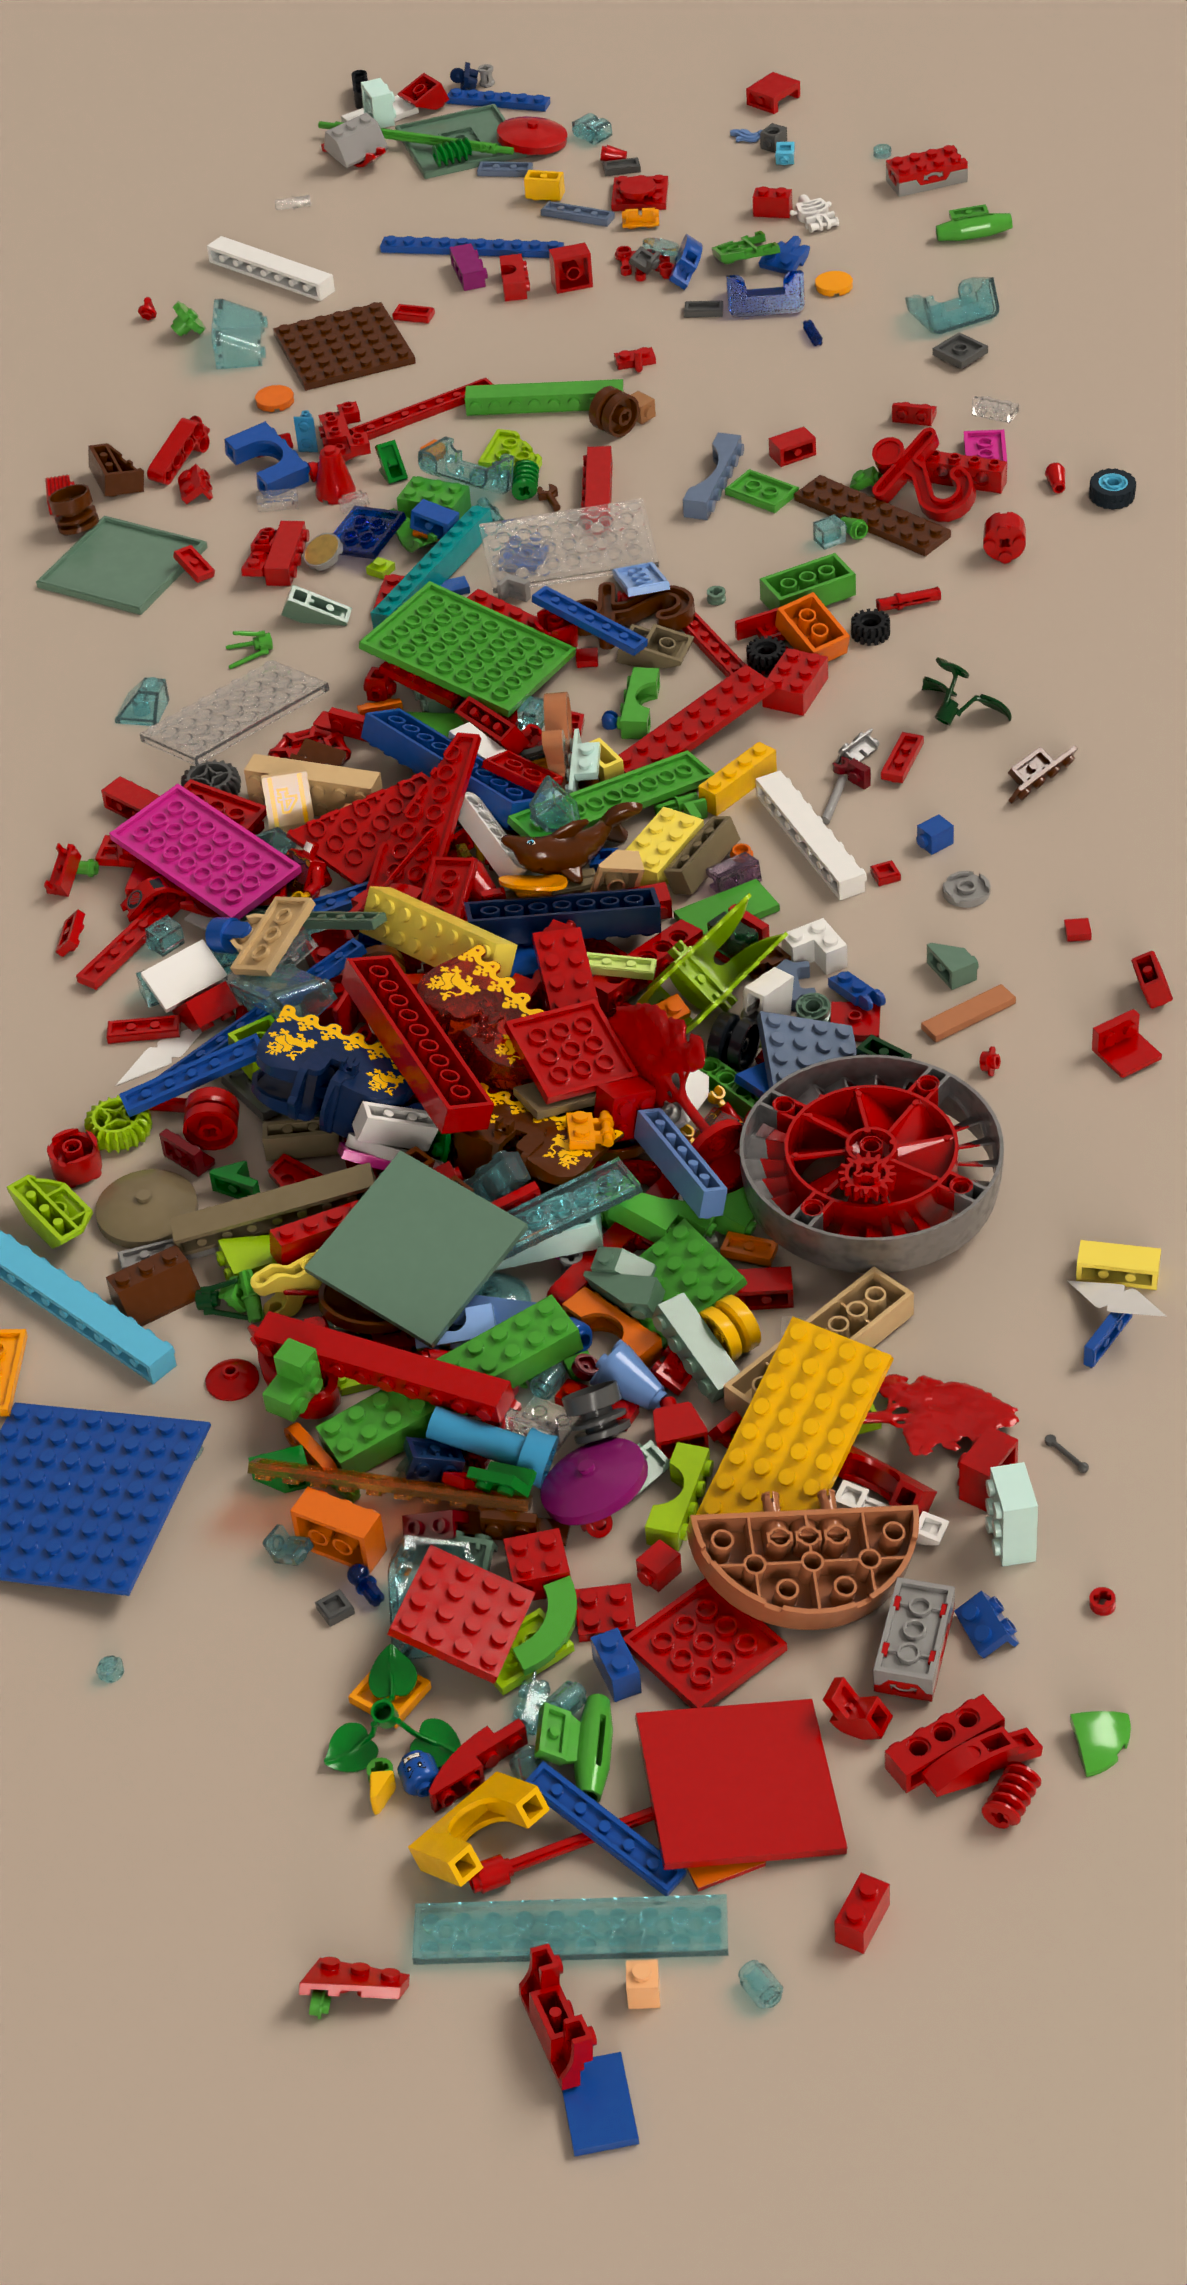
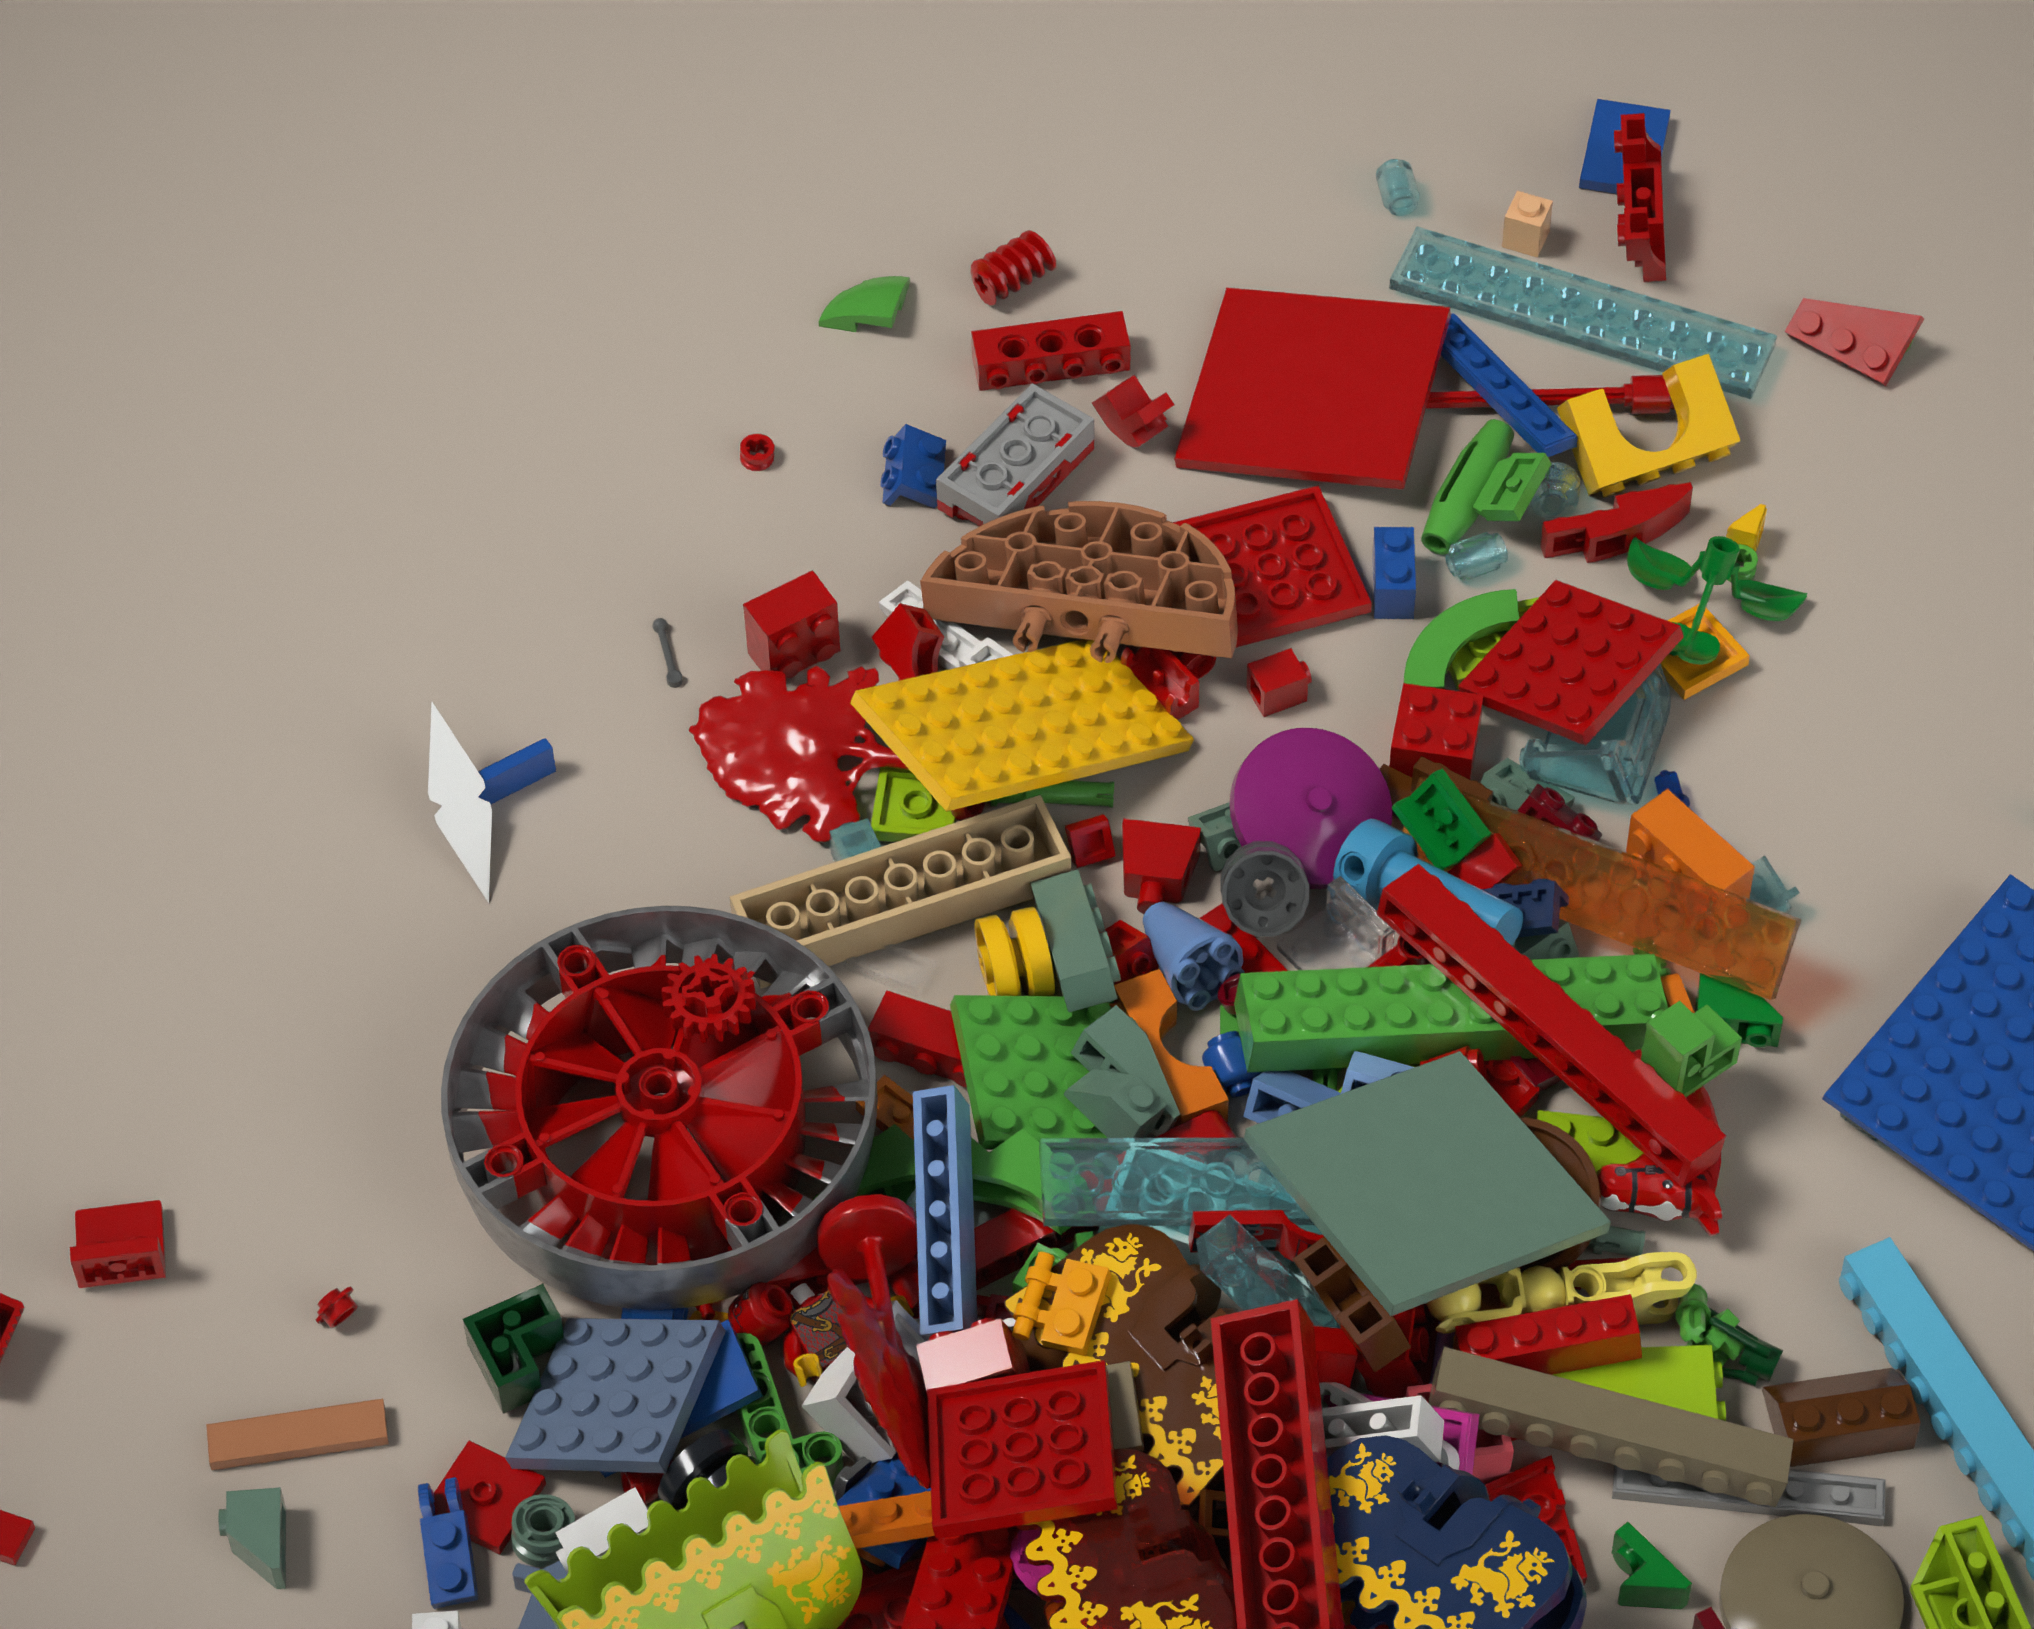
camera: 160 degrees left, 10 degrees up
(232, 1379) = (1757, 1230): red dish -> none
(334, 1607) = (1724, 798): dark grey tile -> none
(417, 1772) = (1691, 528): blue head -> none
(533, 1694) = (1527, 566): clear light blue hinge -> none
(604, 1610) = (1369, 661): red plate -> none
(689, 1471) = (1224, 738): lime arch -> none
(862, 1913) = (1250, 210): red brick -> none
(976, 1758) = (1018, 305): red slope -> none
(1012, 1514) = (810, 526): light aqua brick -> none
(1118, 1264) = (410, 875): light yellow brick -> none

